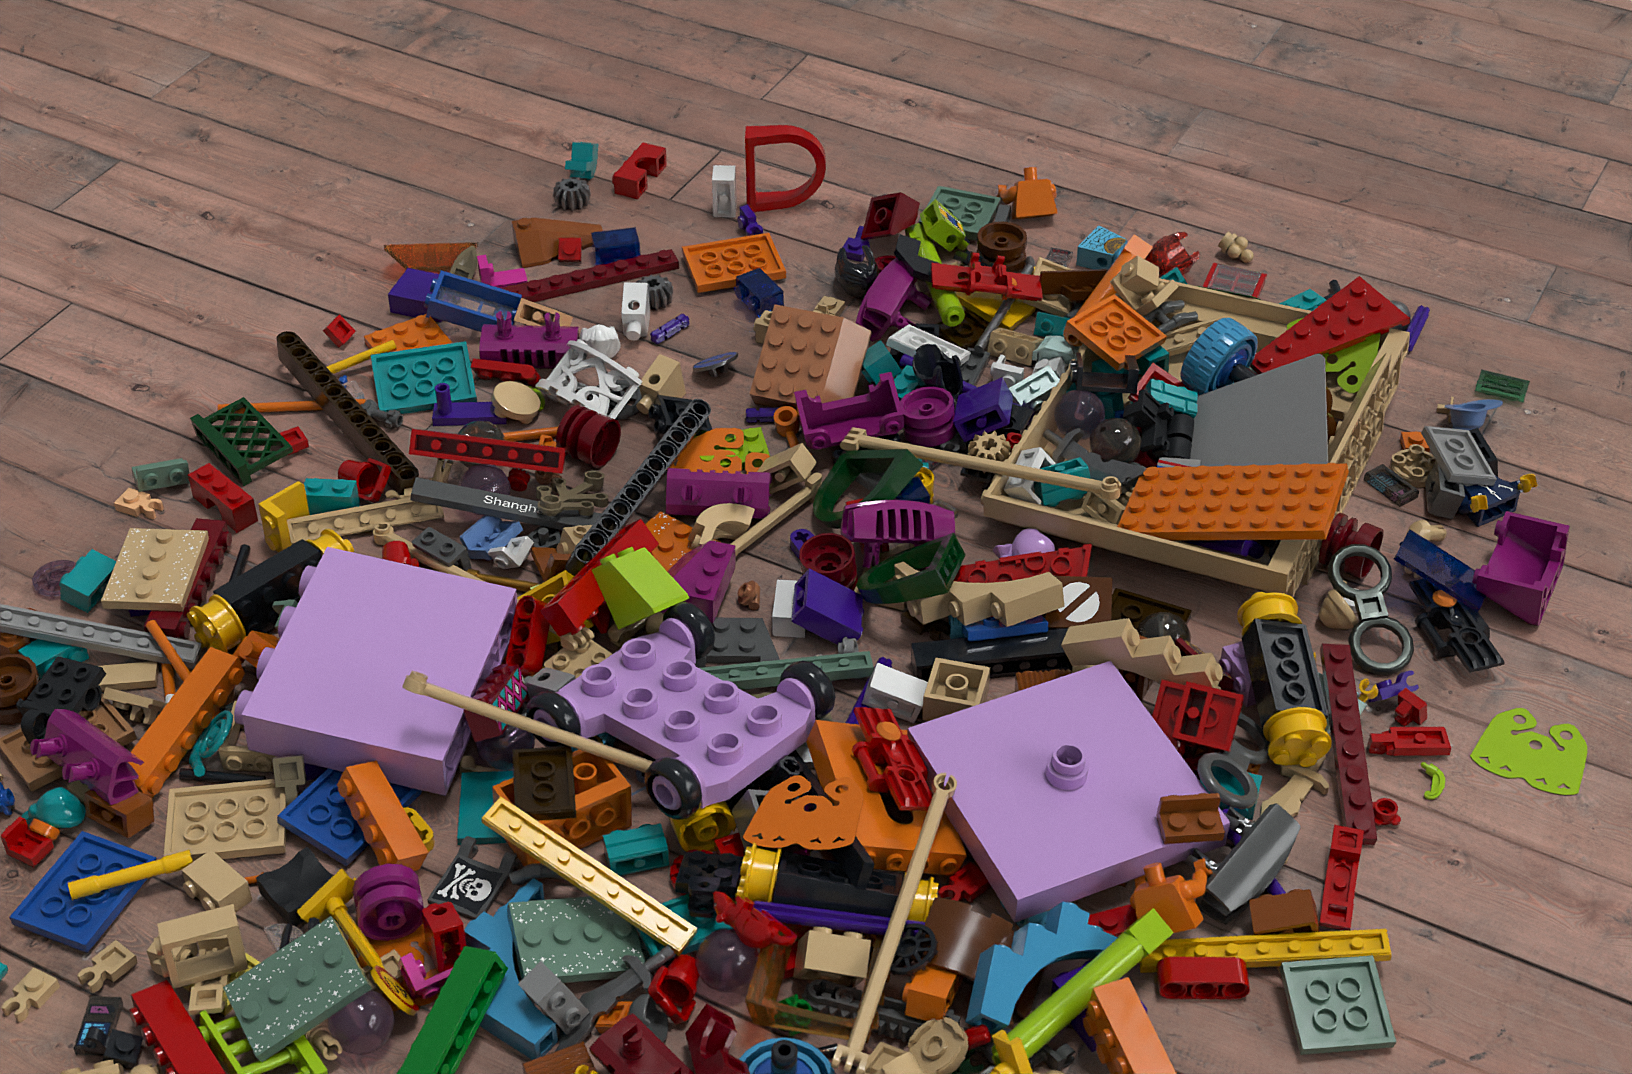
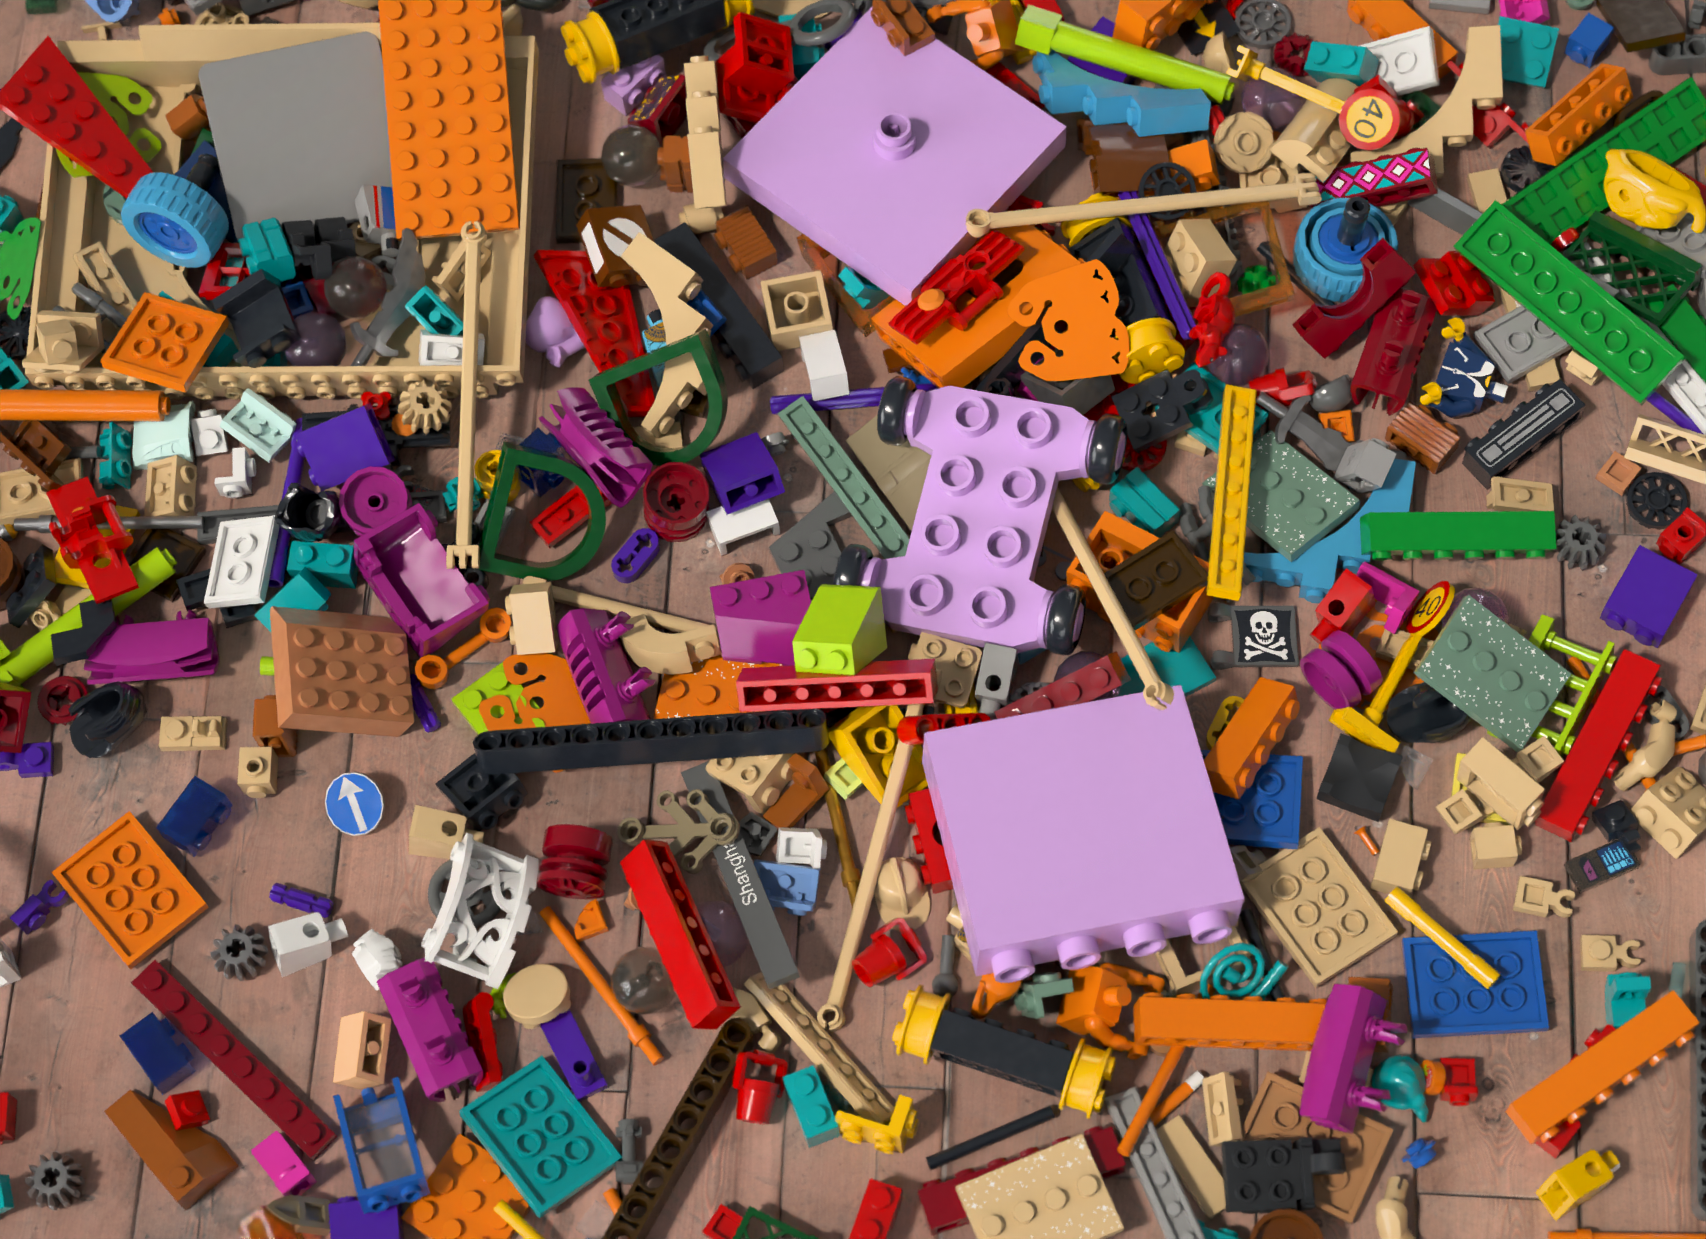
camera: 110 degrees left, 25 degrees up
(442, 549) = (842, 919): dark grey bracket -> none

